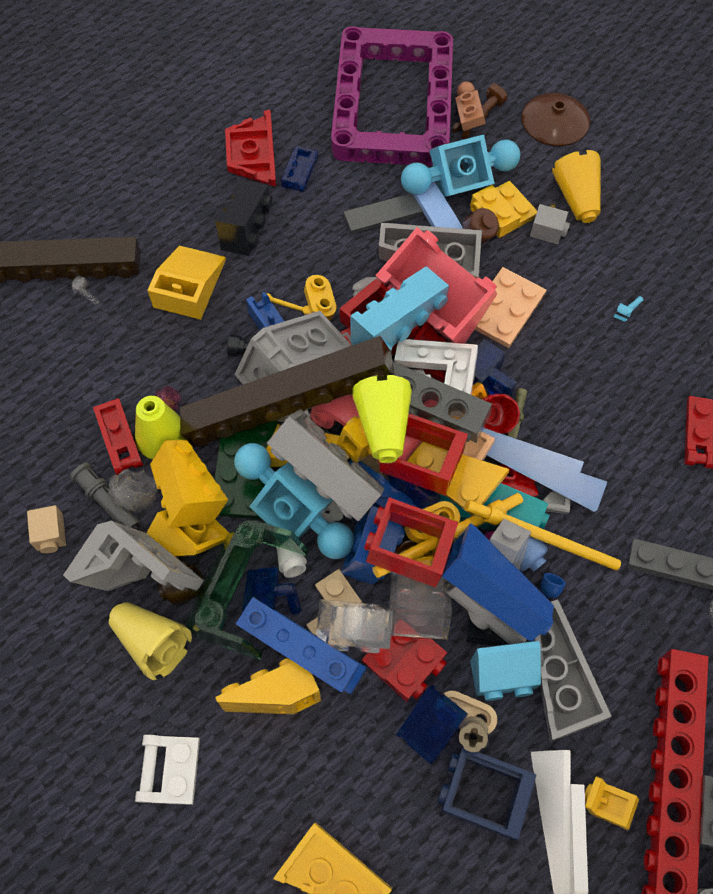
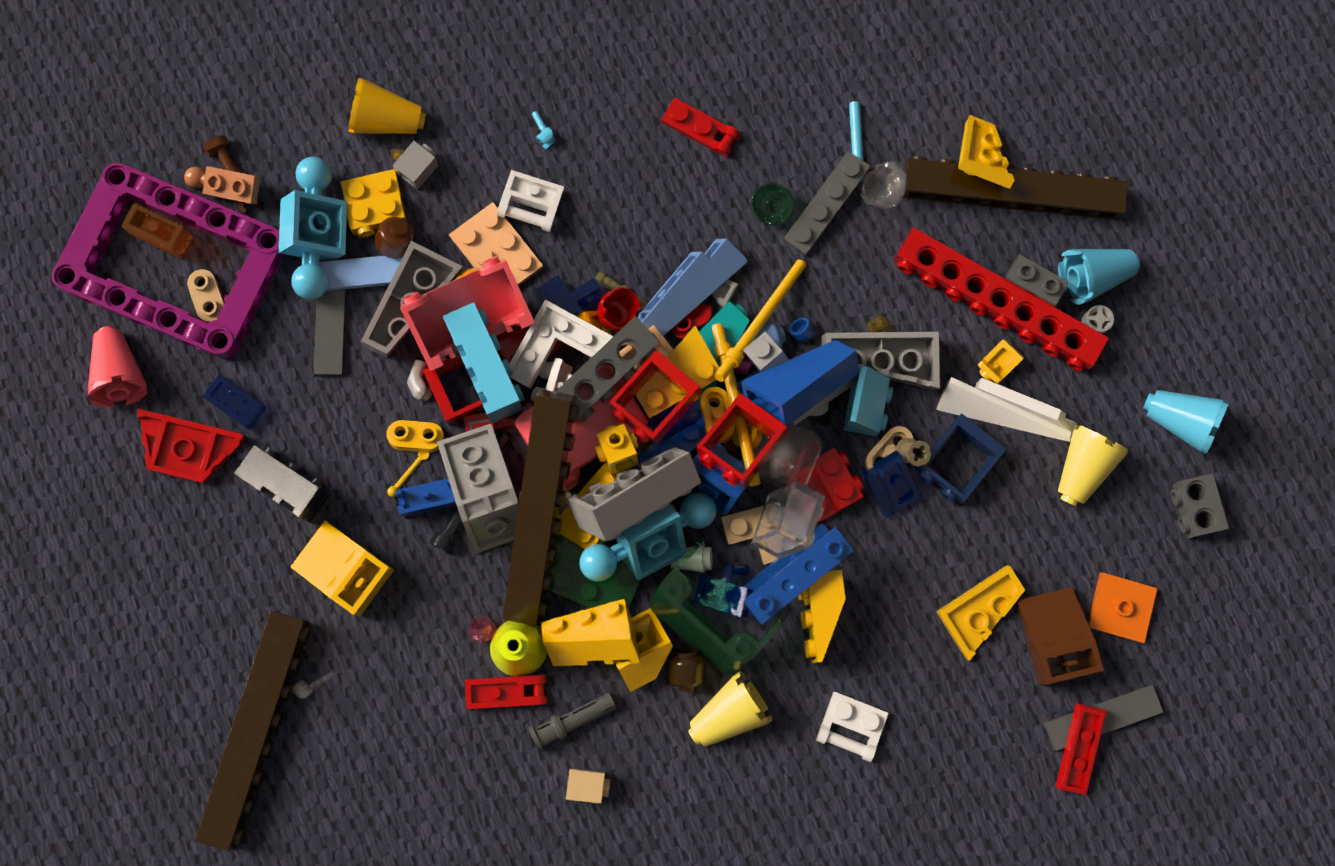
camera: 75 degrees left, 15 degrees up
(123, 555) = (650, 704): light grey bracket -> none
(133, 490) = (575, 689): clear hair -> none
(292, 84) = (113, 370): none -> coral cone
(382, 121) = (205, 295): none -> tan plate
(384, 414) = (621, 422): neon yellow cone -> none
(412, 77) = (157, 230): none -> clear orange brick
(555, 119) = (282, 106): reddish brown dish -> none
(568, 314) = (532, 193): none -> white plate
(593, 660) = (878, 324): none -> clear yellow rock
(663, 506) = (779, 197): none -> clear green hair

